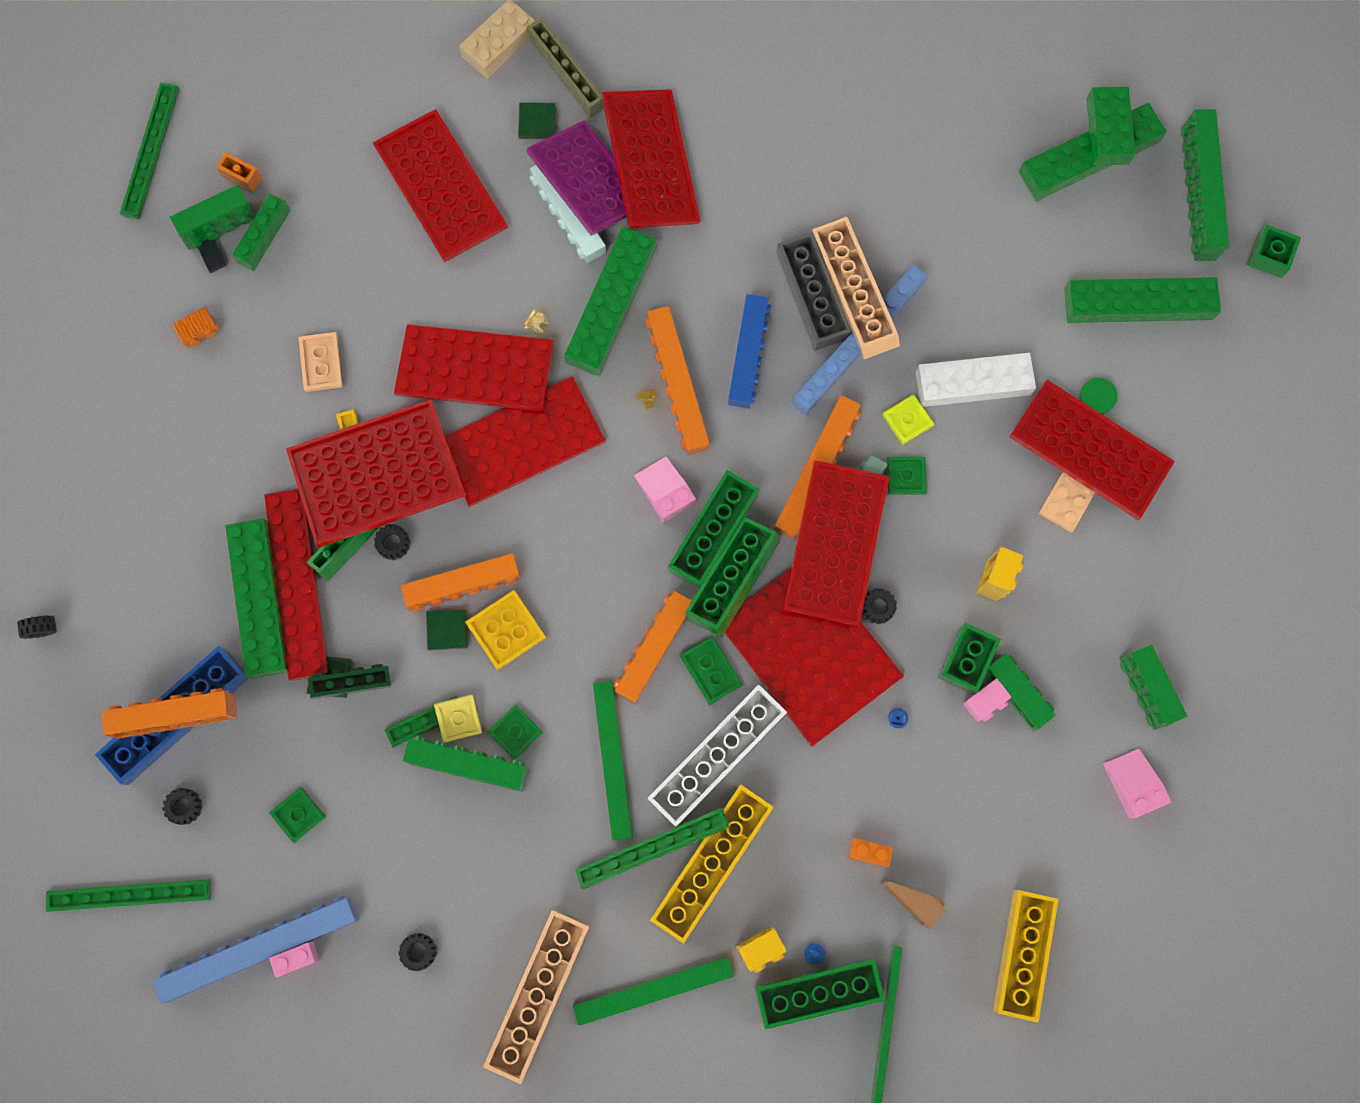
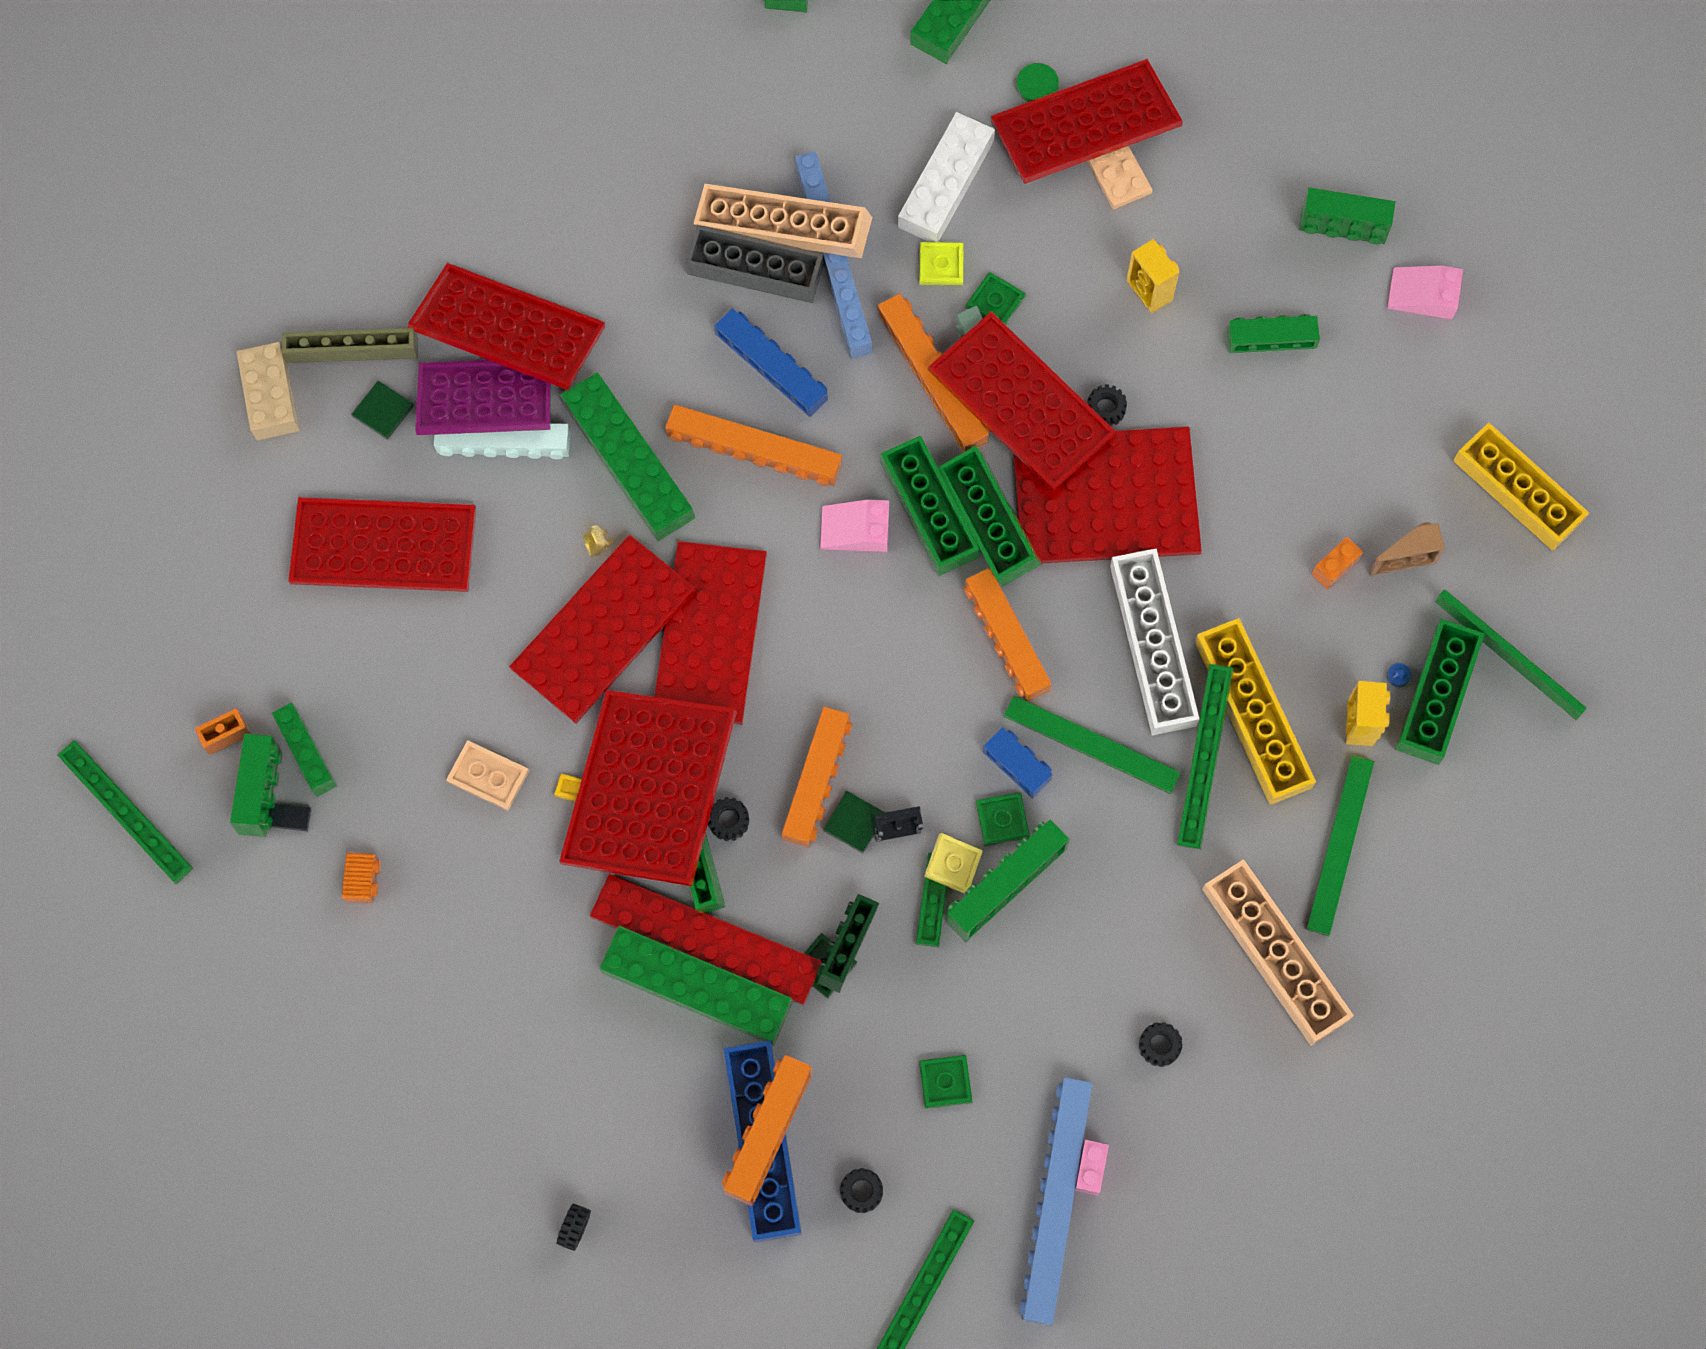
camera: 50 degrees left, 5 degrees down
(461, 659) = (897, 823): none -> black hinge
(505, 630) = (894, 764): yellow plate -> none
(563, 716) = (1018, 762): none -> blue brick
(646, 396) = (750, 485): clear yellow tile -> none
(711, 670) = (1065, 598): green tile -> none
(898, 718) = (1225, 457): blue tile -> none
(969, 658) = (1212, 356): green brick -> none
(987, 700) = (1262, 368): bright pink brick -> none

